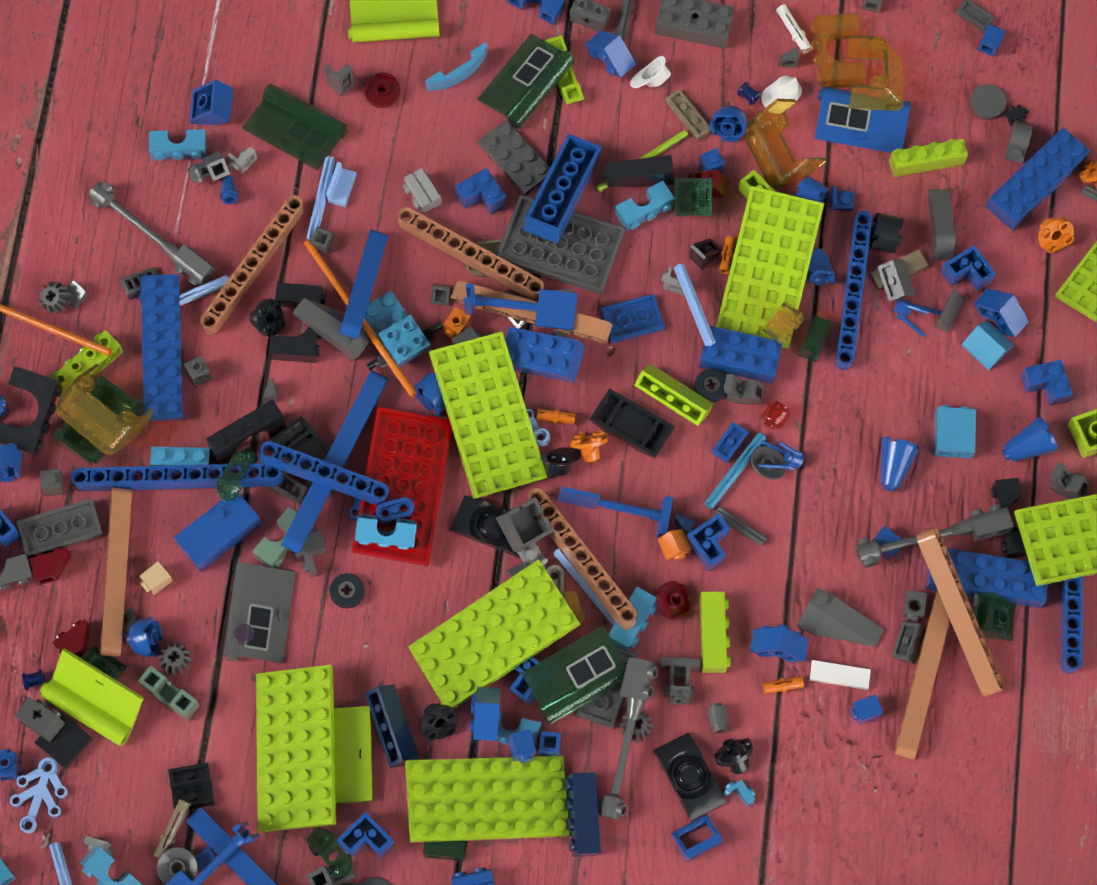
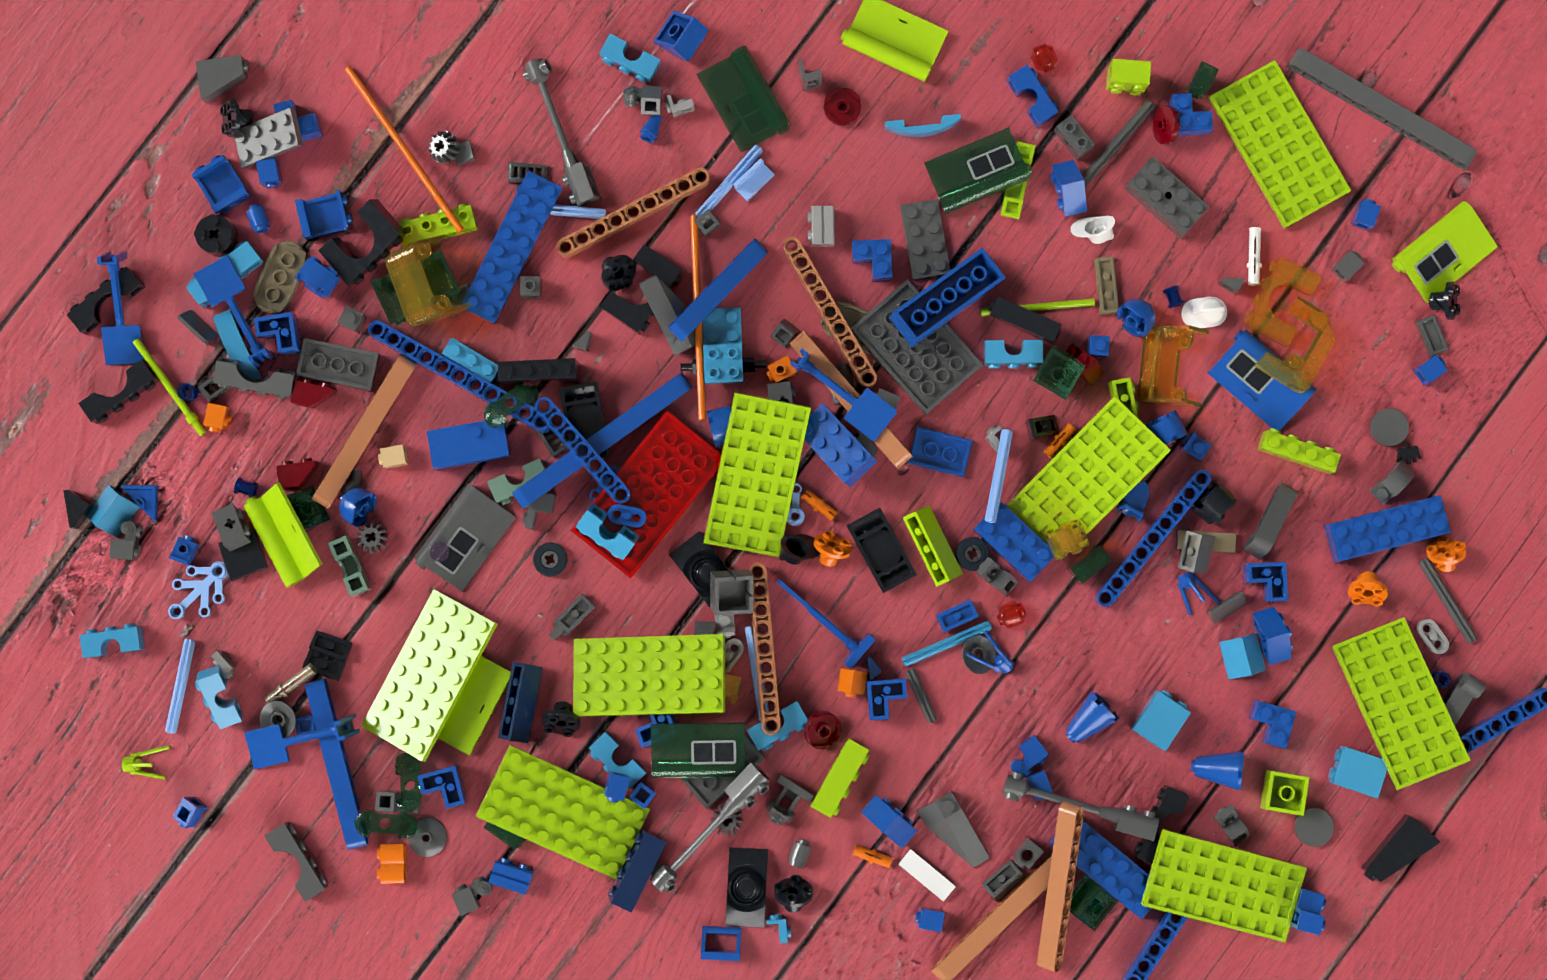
camera: 35 degrees right, 15 degrees up
(395, 628) = (572, 617): none -> dark grey hinge
(486, 707) = (601, 740): blue brick -> none
(865, 519) = (1033, 754): none -> blue brick

